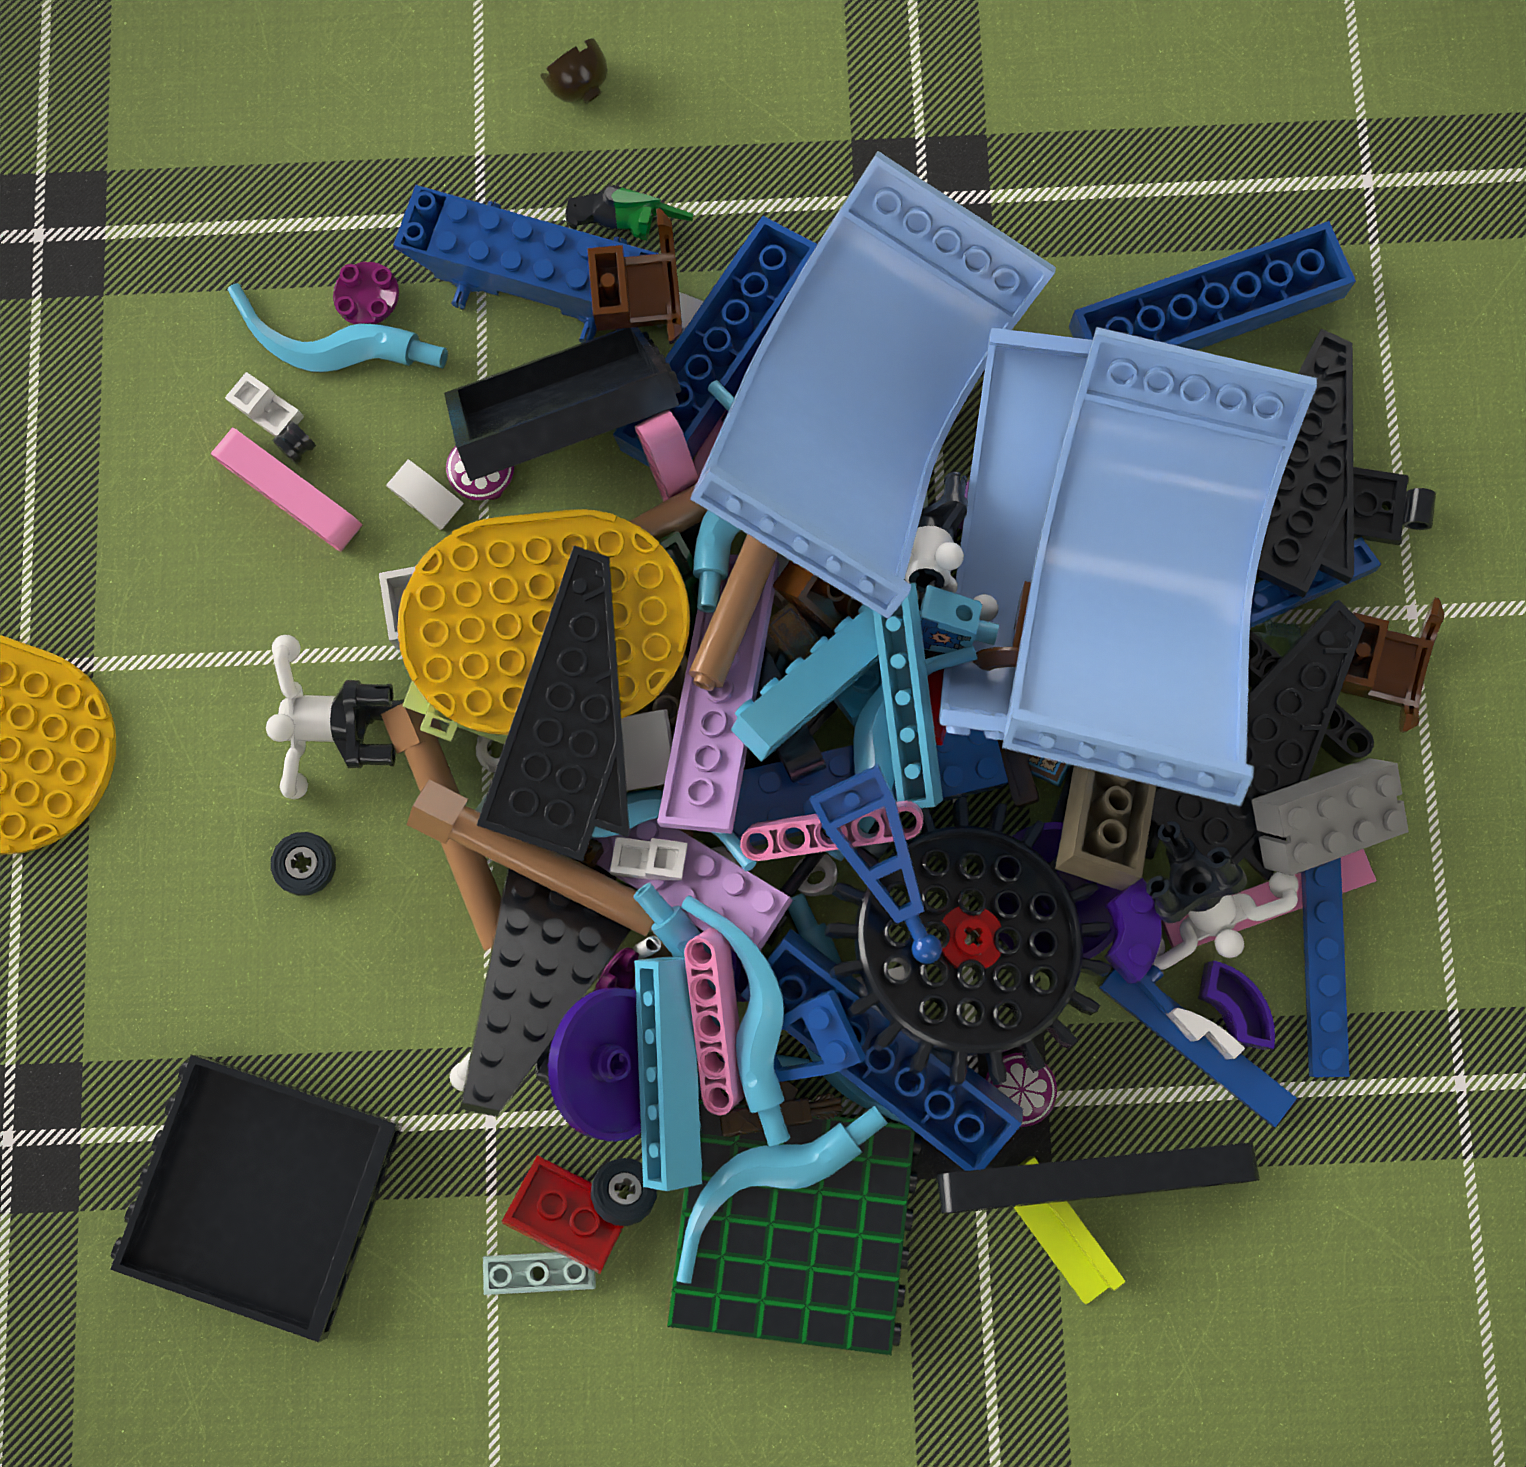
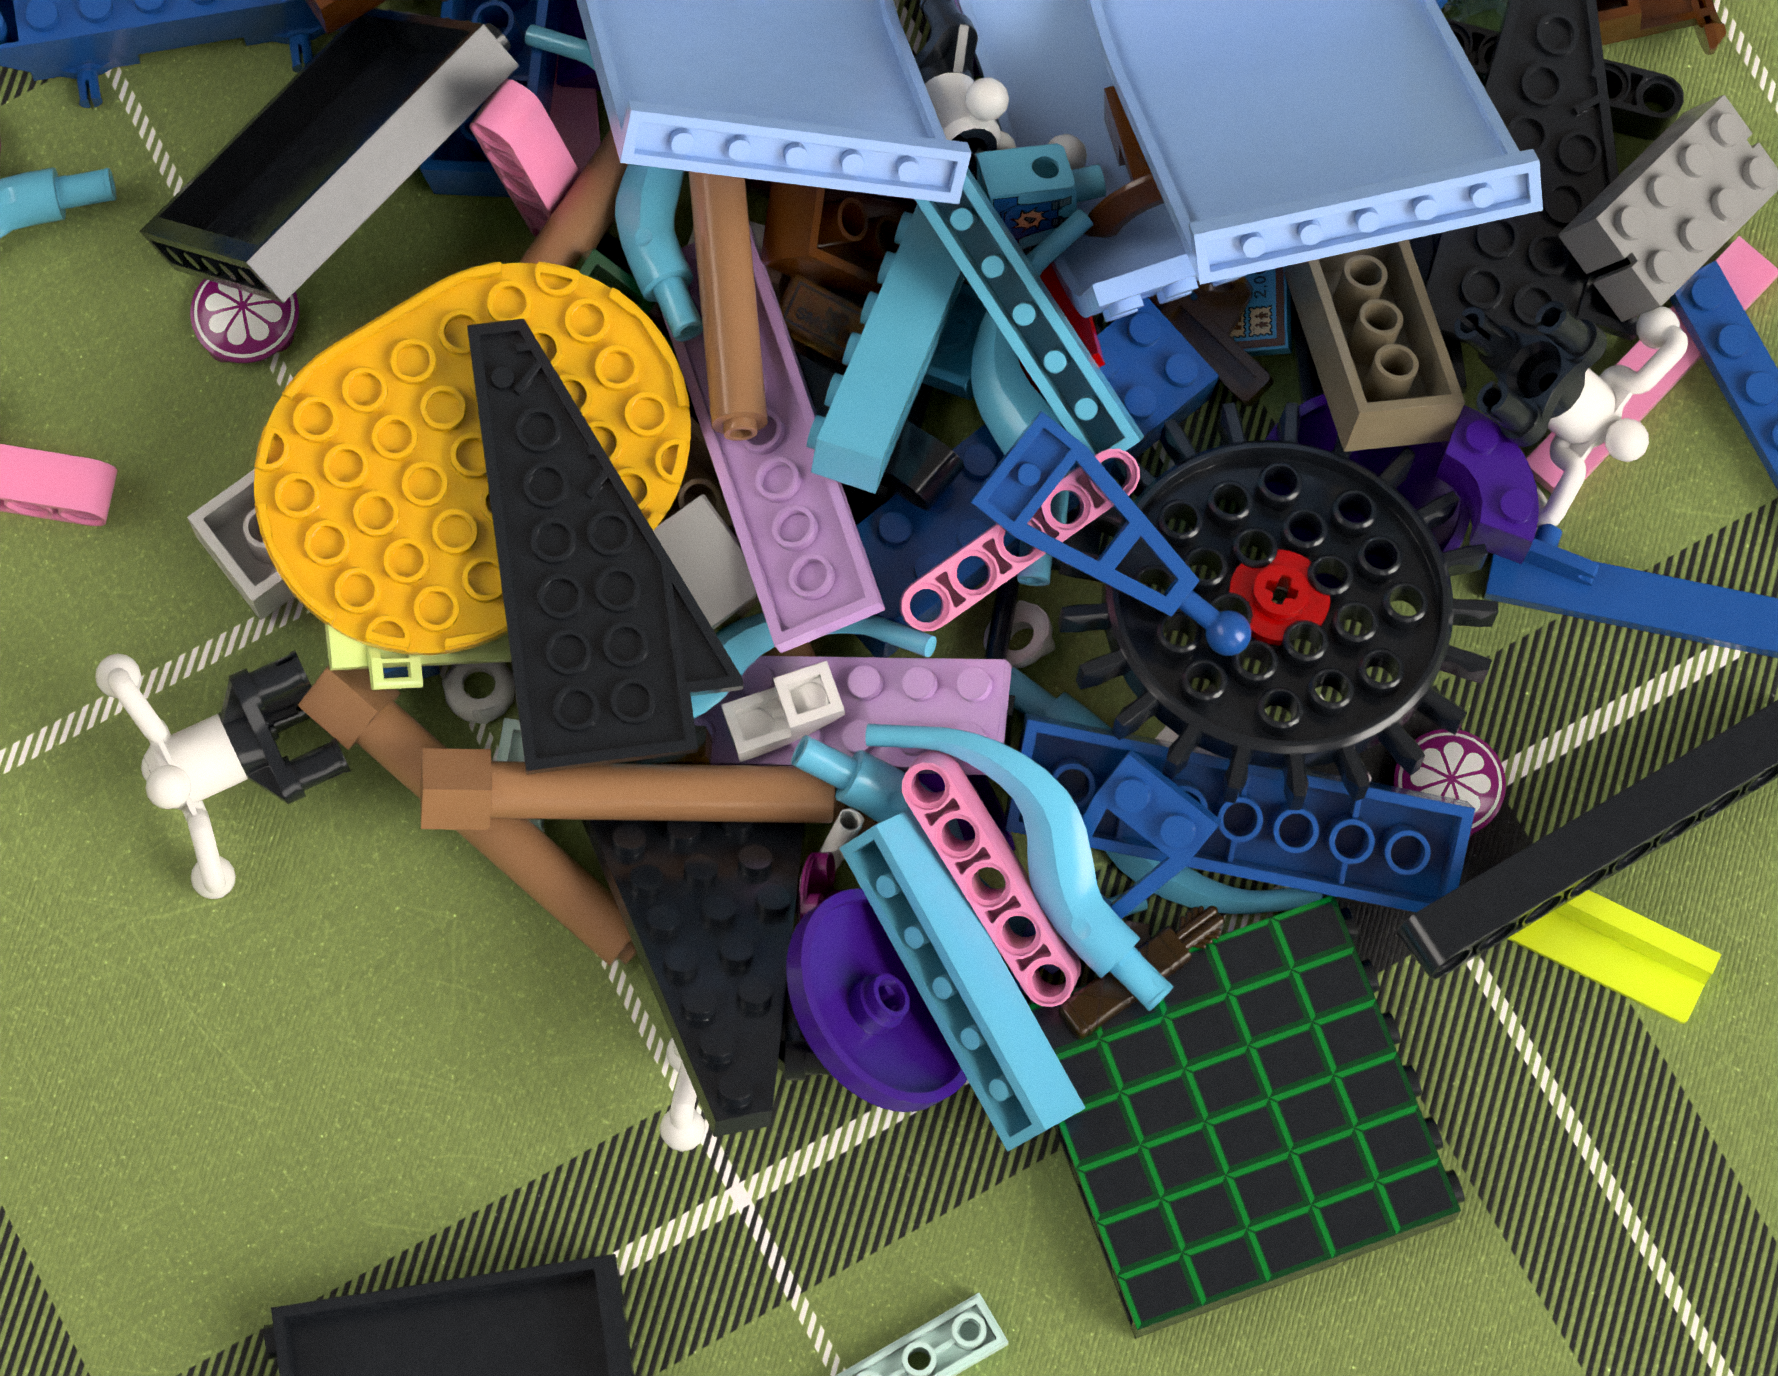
camera: 30 degrees left, 5 degrees down
(314, 849) = (290, 950): black bush -> none
(424, 494) = (185, 385): white slope -> none
(559, 1213) = (919, 1259): red tile -> none
(613, 1208) = (974, 1213): black bush -> none
(776, 1167) = (1177, 1038): medium azure animal -> none
(1196, 1027) = (1637, 573): white slope -> none
(1240, 1005) = (1682, 519): dark purple brick -> none

